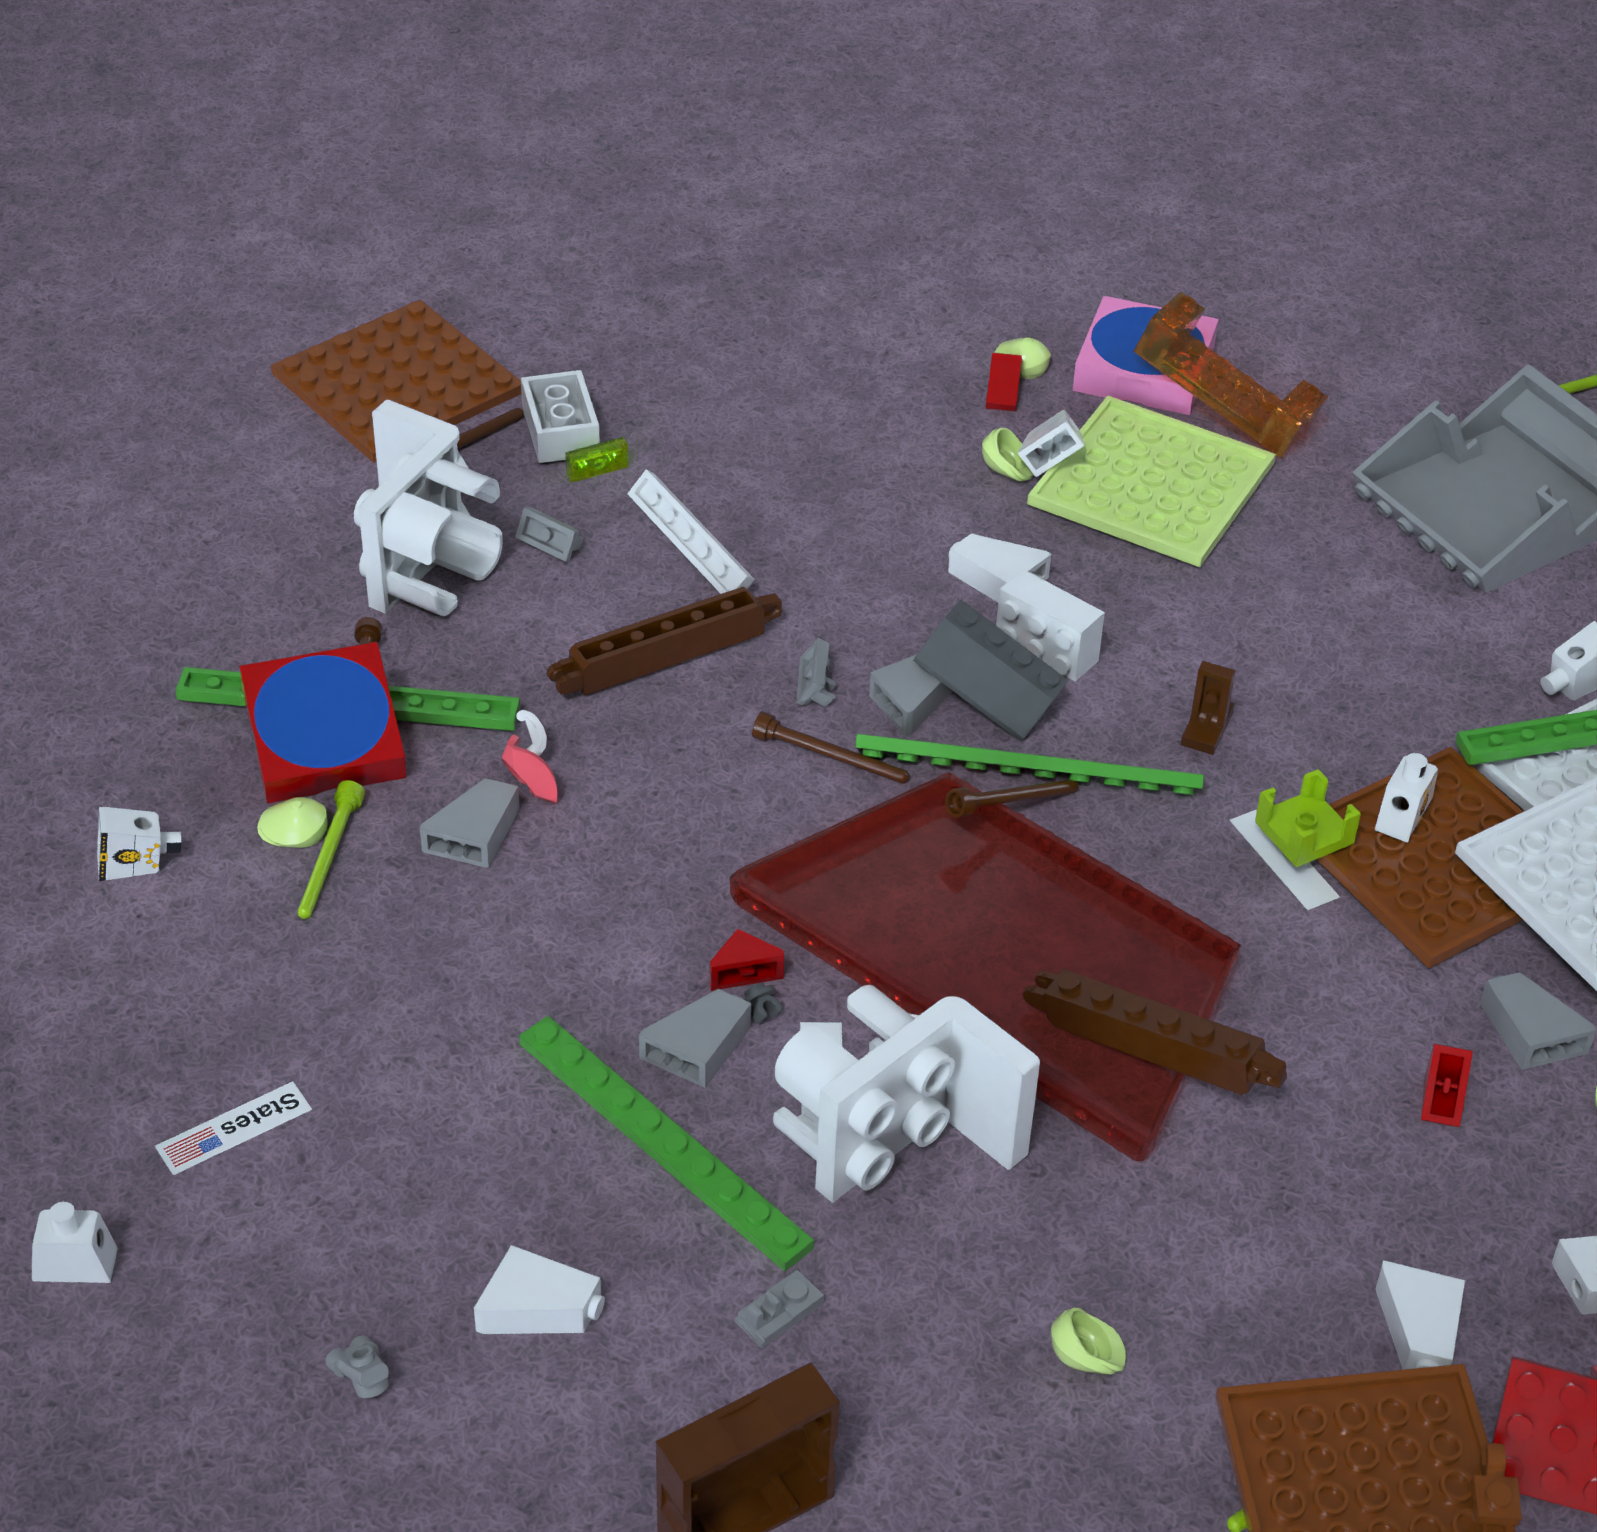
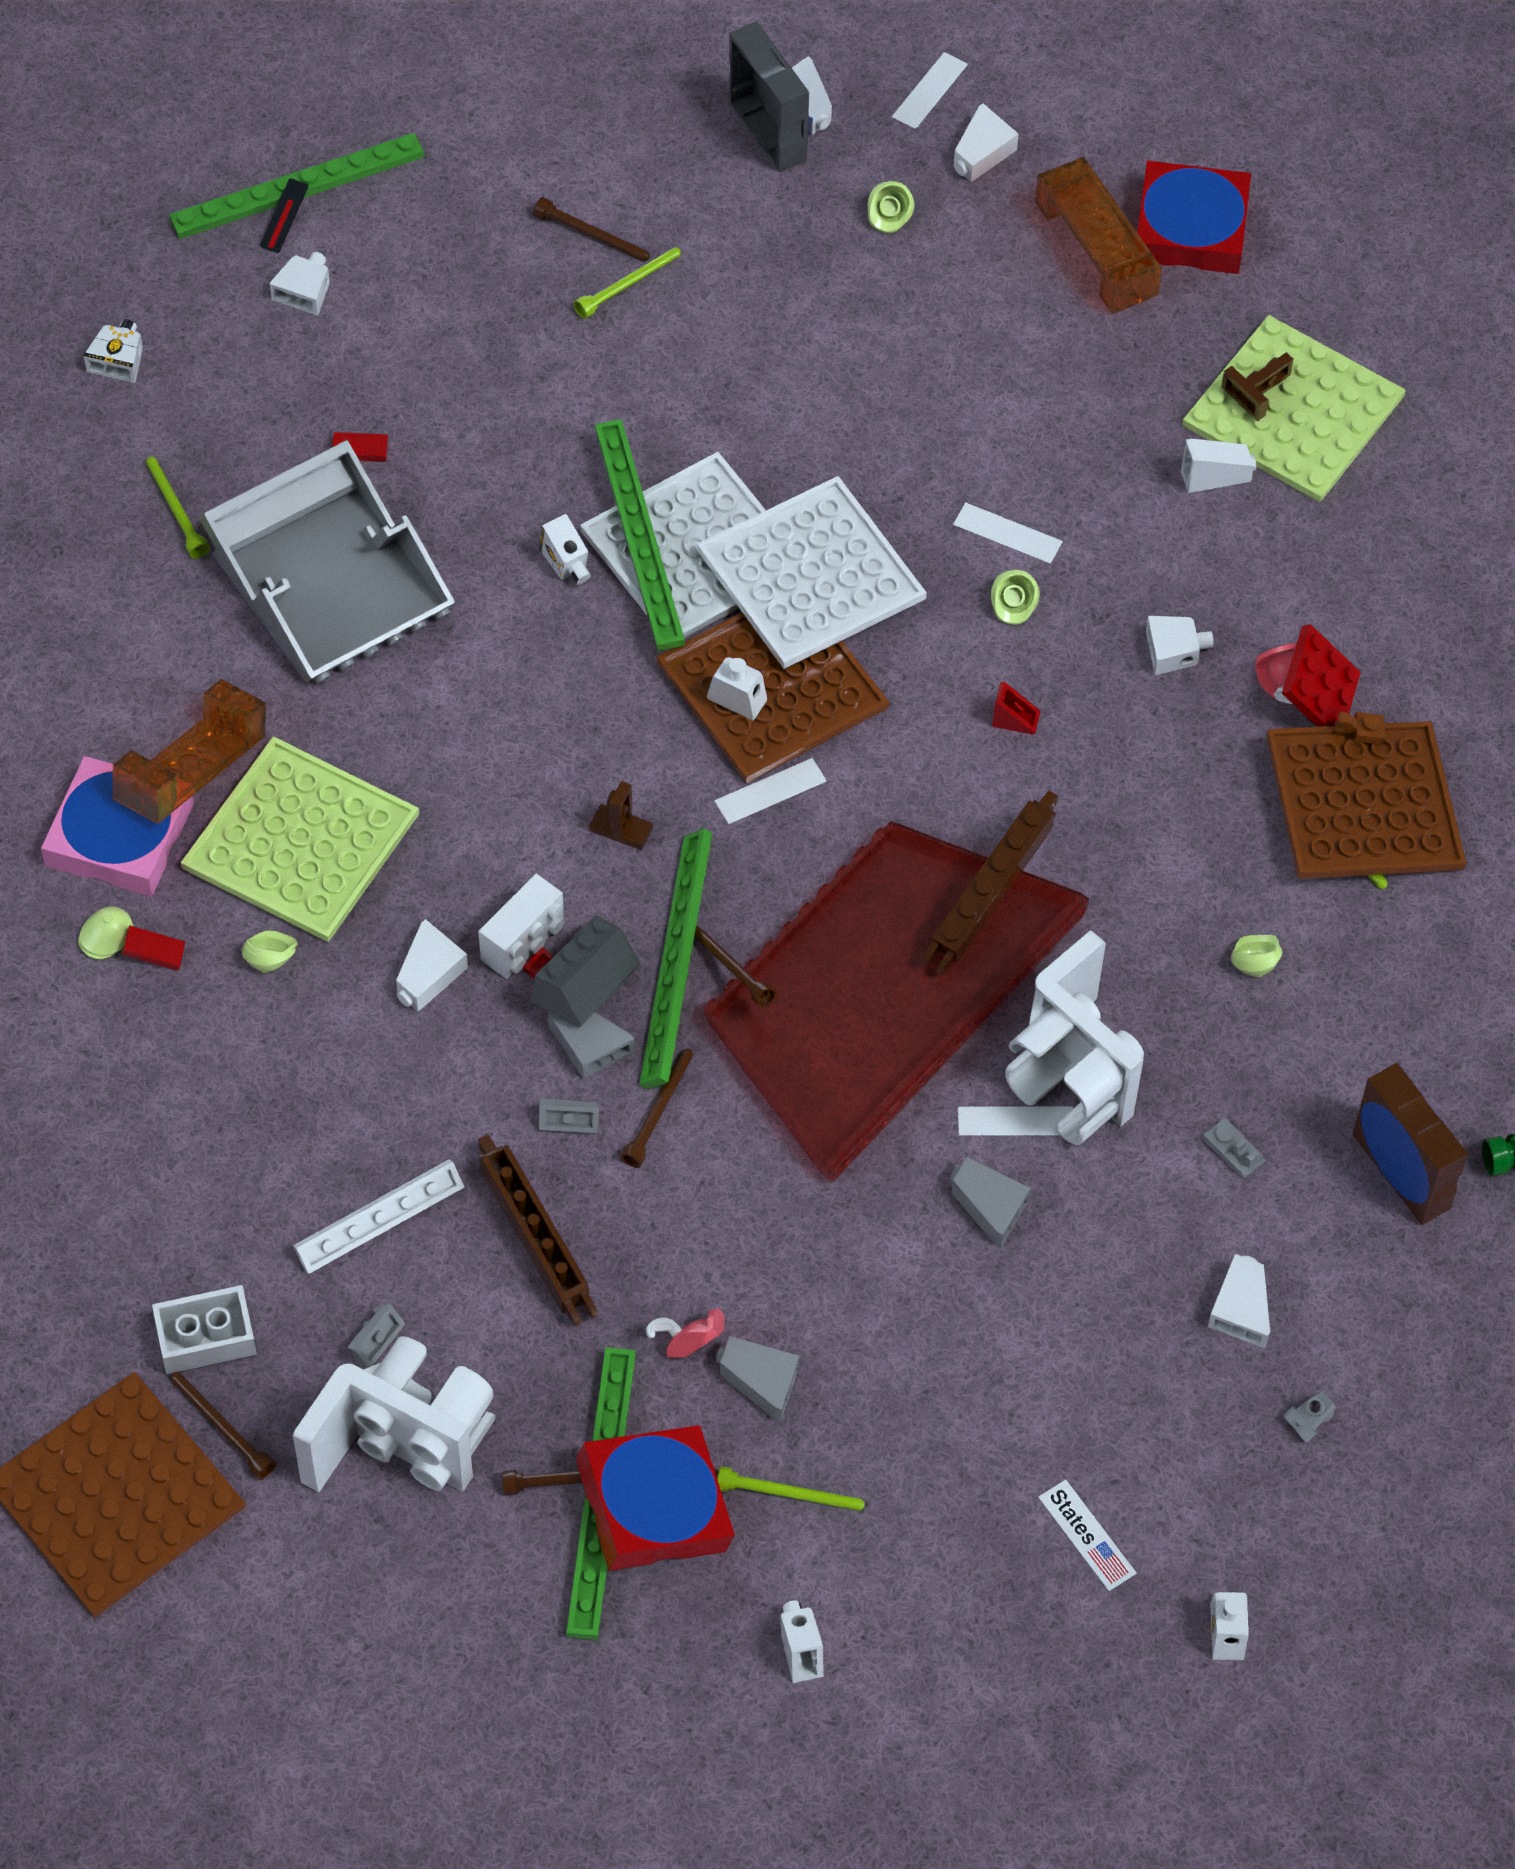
camera: 90 degrees left, 15 degrees up
(294, 823) = (757, 1522): yellowish green hat -> none
(596, 459) = (267, 1308): clear neon green plate -> none
(667, 1144) = (1083, 1228): bright green plate -> none
(745, 962) = (908, 1169): red slope -> none
(760, 998) = (946, 1157): dark grey plate -> none
(1055, 441) = (262, 908): white torso -> none
(1306, 824) = (758, 762): lime panel -> none
(1420, 1313) = (1220, 753): white slope -> none
(1534, 1022) = (946, 648): light grey slope -> none

